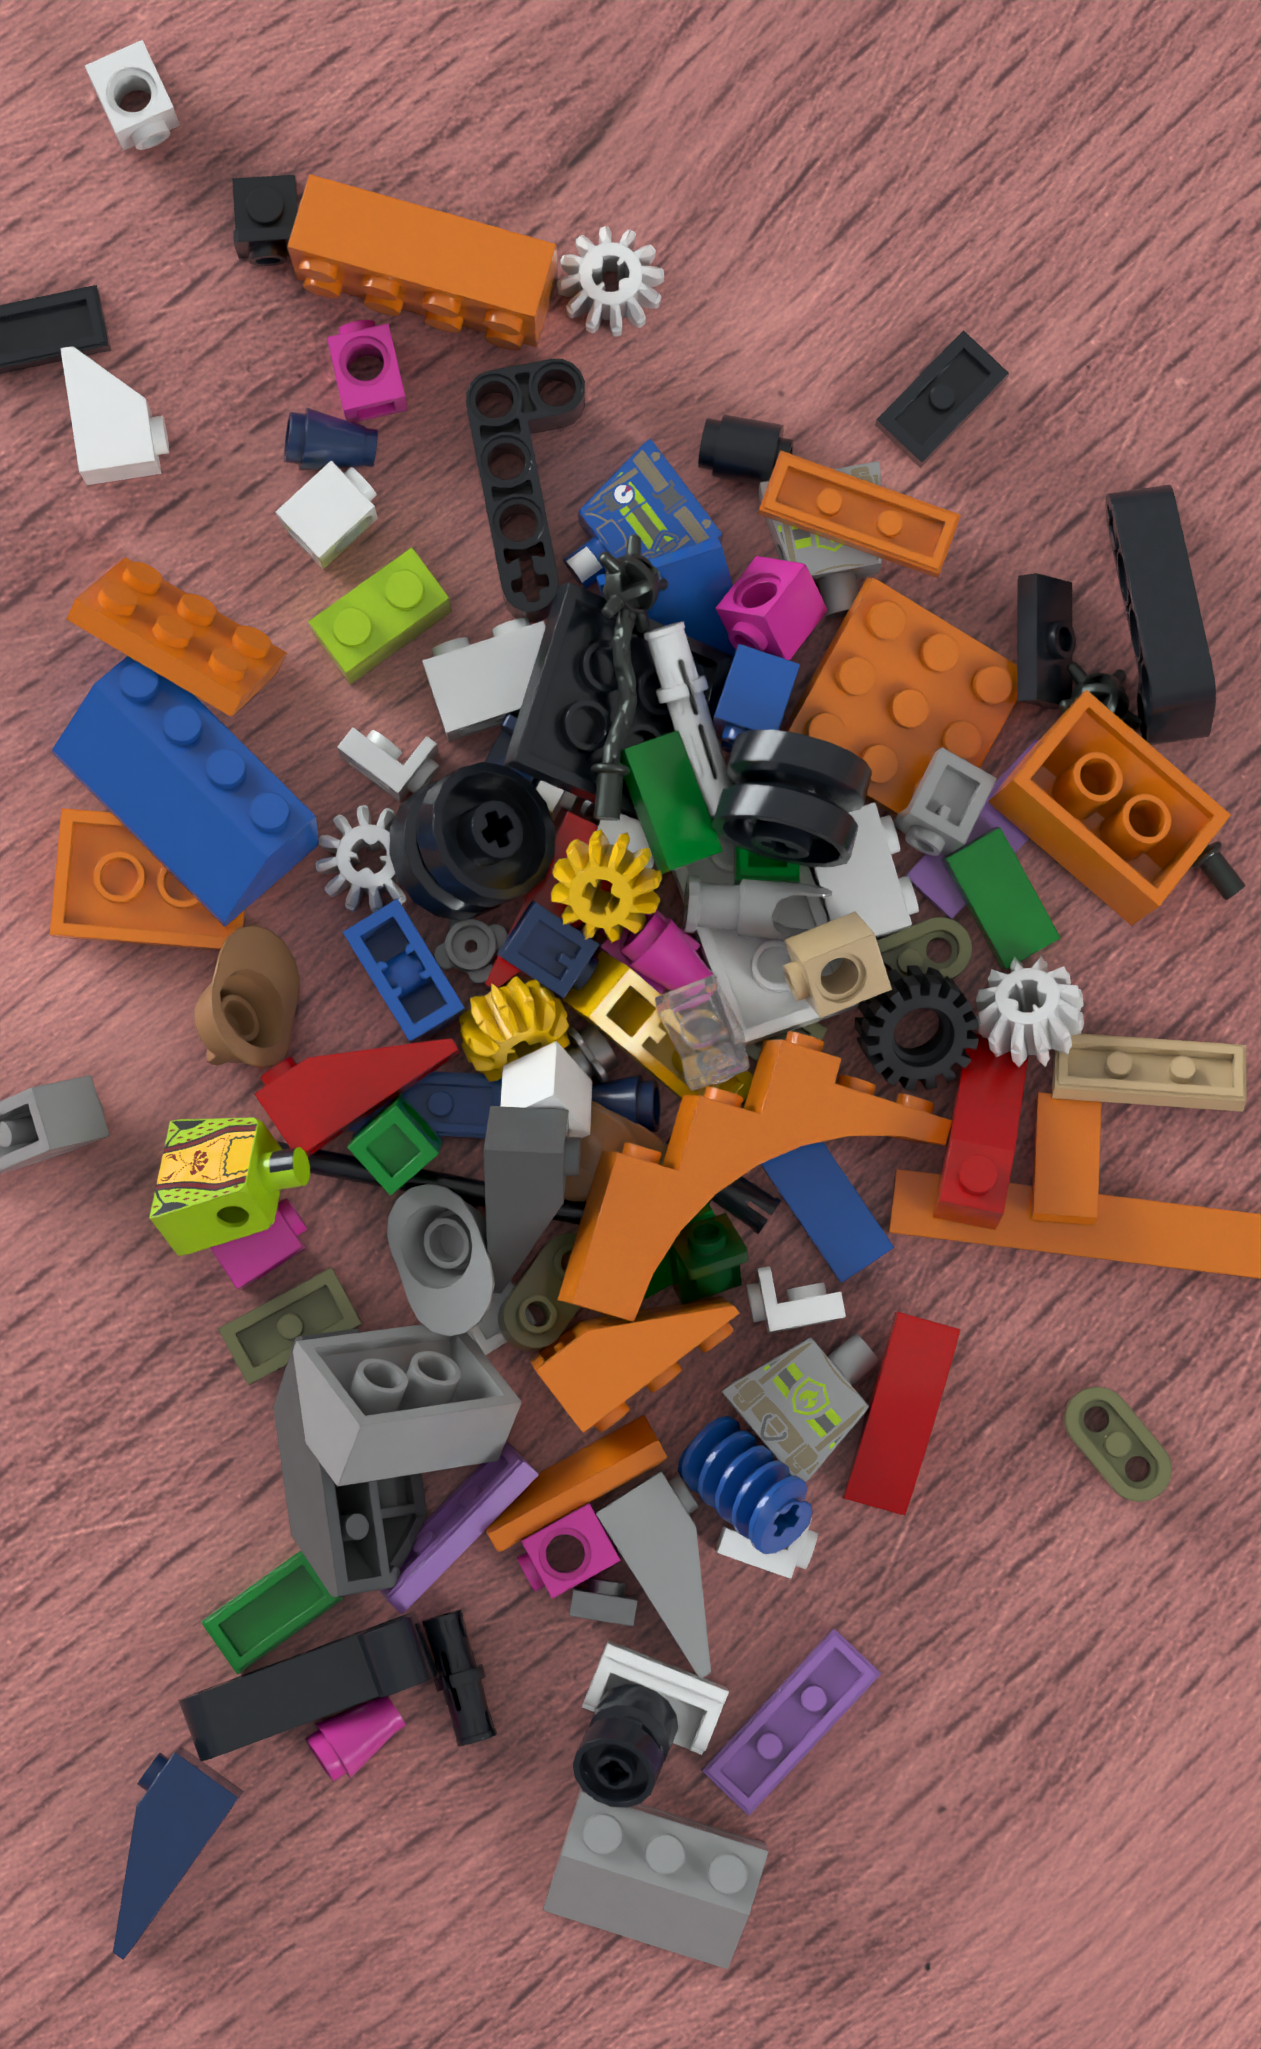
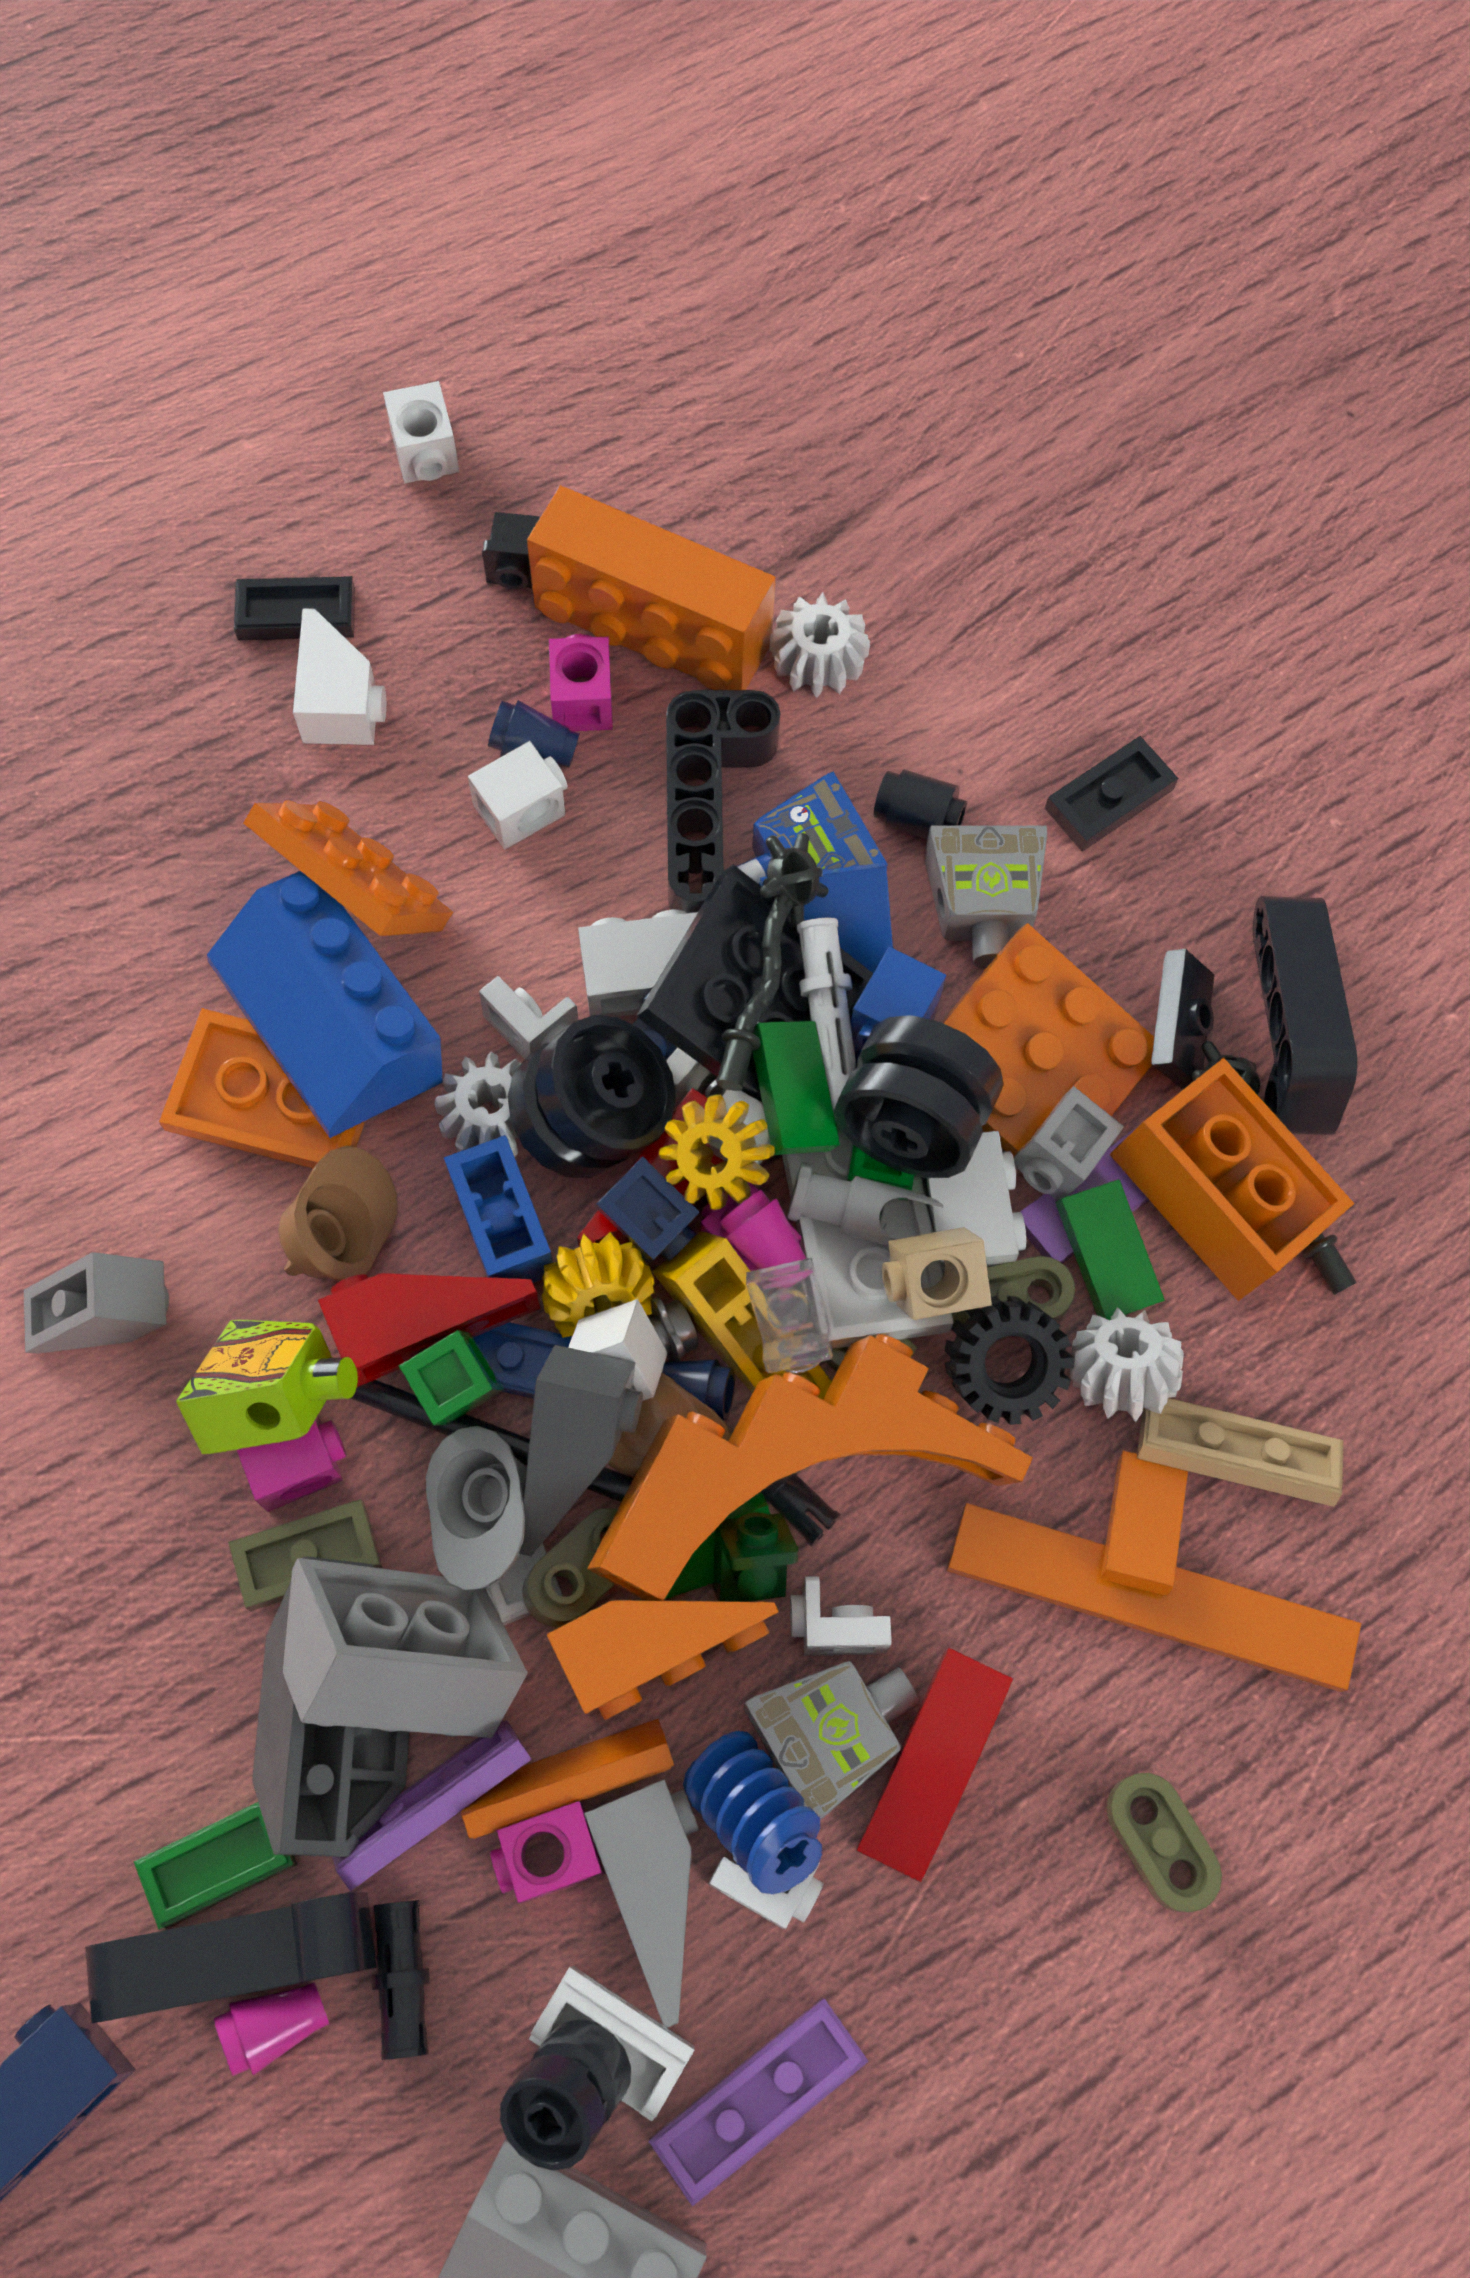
camera: 10 degrees right, 15 degrees down
(380, 615) = (548, 888): lime brick -> none
(478, 963) = (561, 1195): flat silver plate -> none
(604, 1602) = (575, 1919): flat silver plate -> none
(772, 607) = (929, 929): dark pink brick -> none
(828, 1209) = (886, 1529): blue tile -> none
(859, 514) = (1022, 865): orange tile -> none
(981, 1139) = (1059, 1487): red slope -> none

